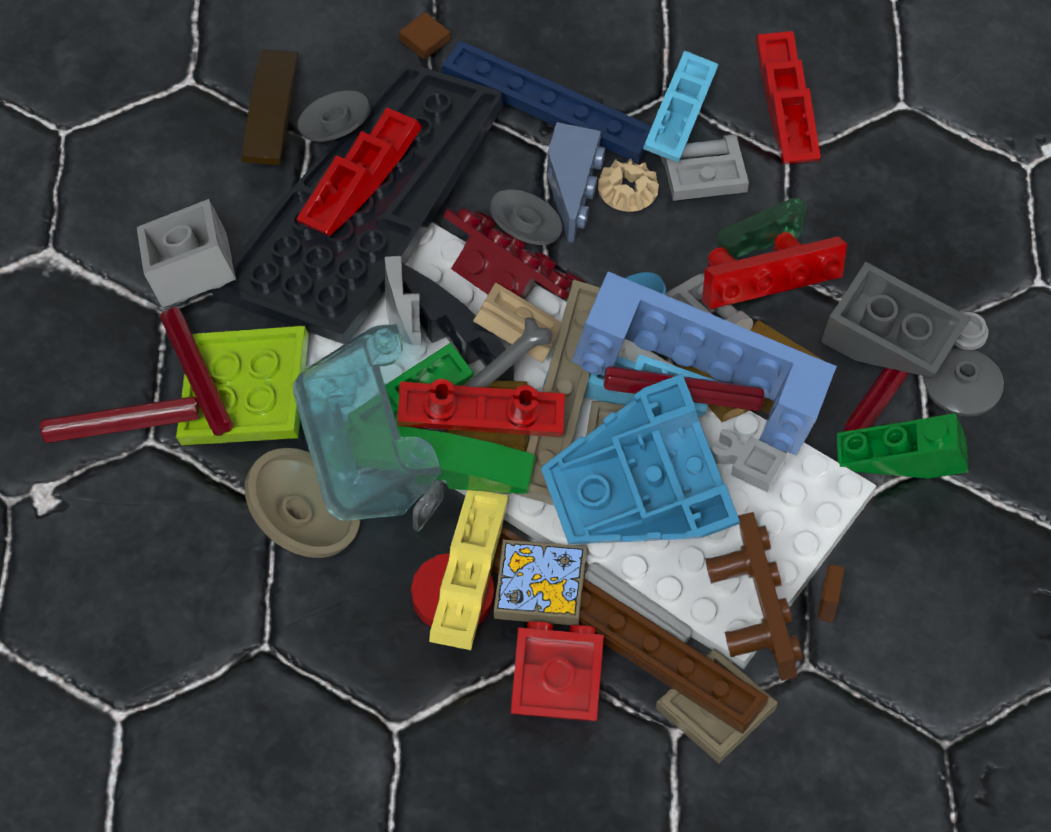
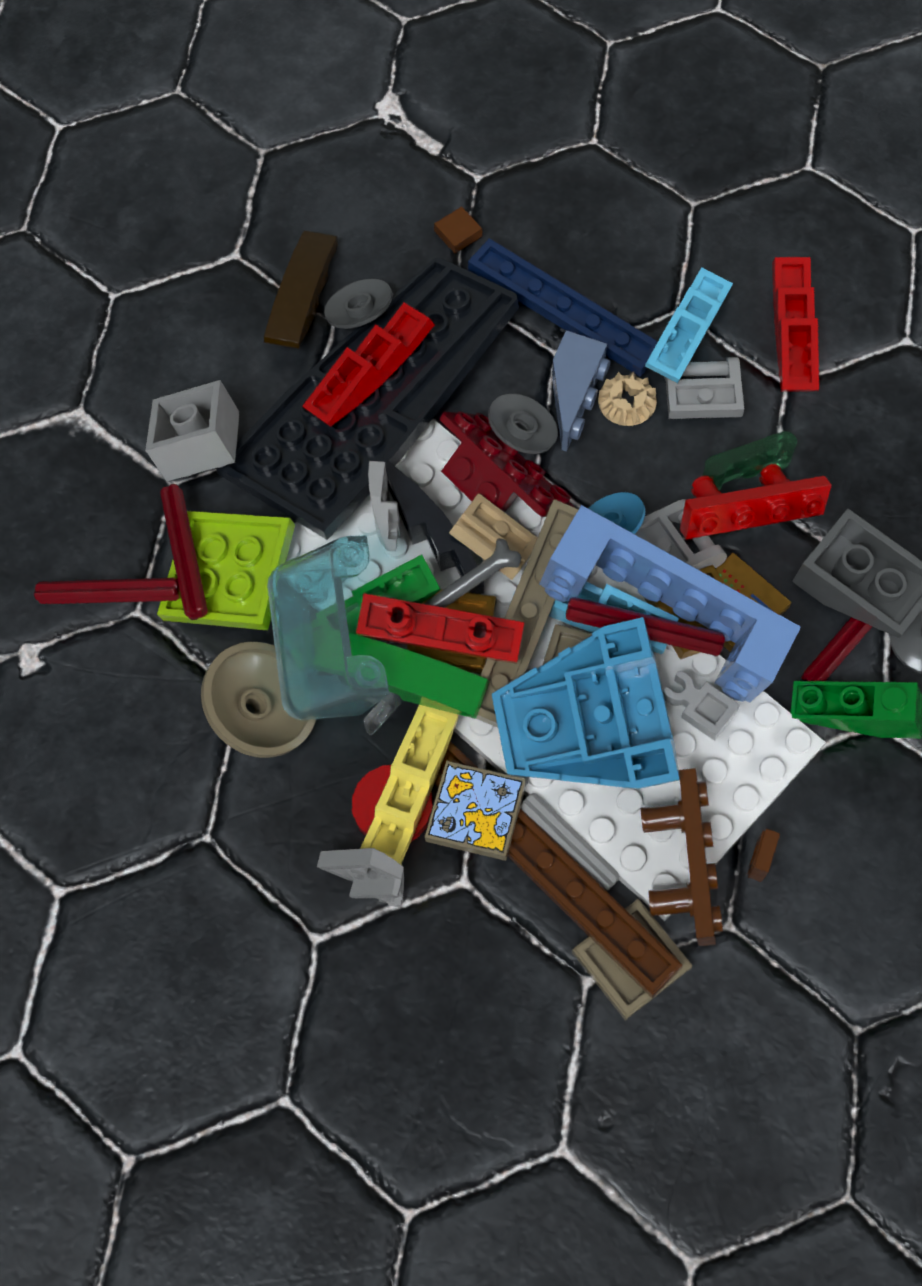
camera: 15 degrees right, 10 degrees up
(442, 649) = (371, 872): none -> light grey slope
(557, 672) = (478, 907): red plate -> none

